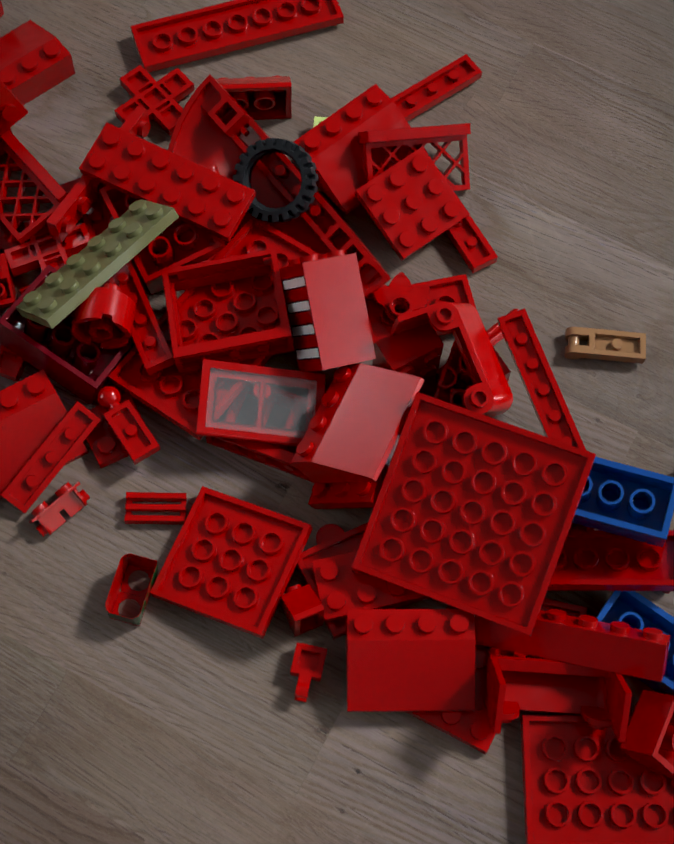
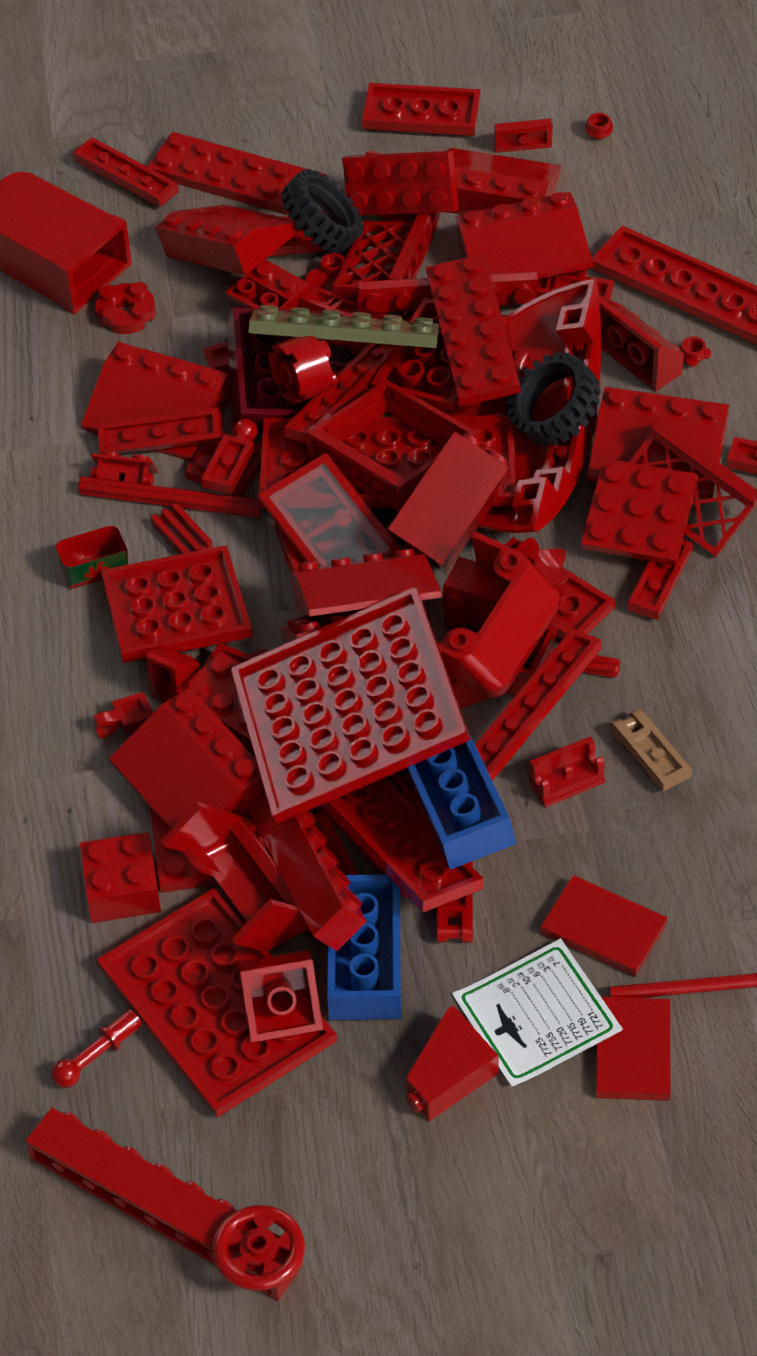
camera: 60 degrees right, 15 degrees down
(92, 88) = (527, 236): none -> red slope
(111, 495) = (168, 496): none -> red axle
(280, 65) = (694, 350): none -> red plate
(464, 777) = (120, 877): none -> red brick
(589, 408) = (566, 772): none -> red hinge

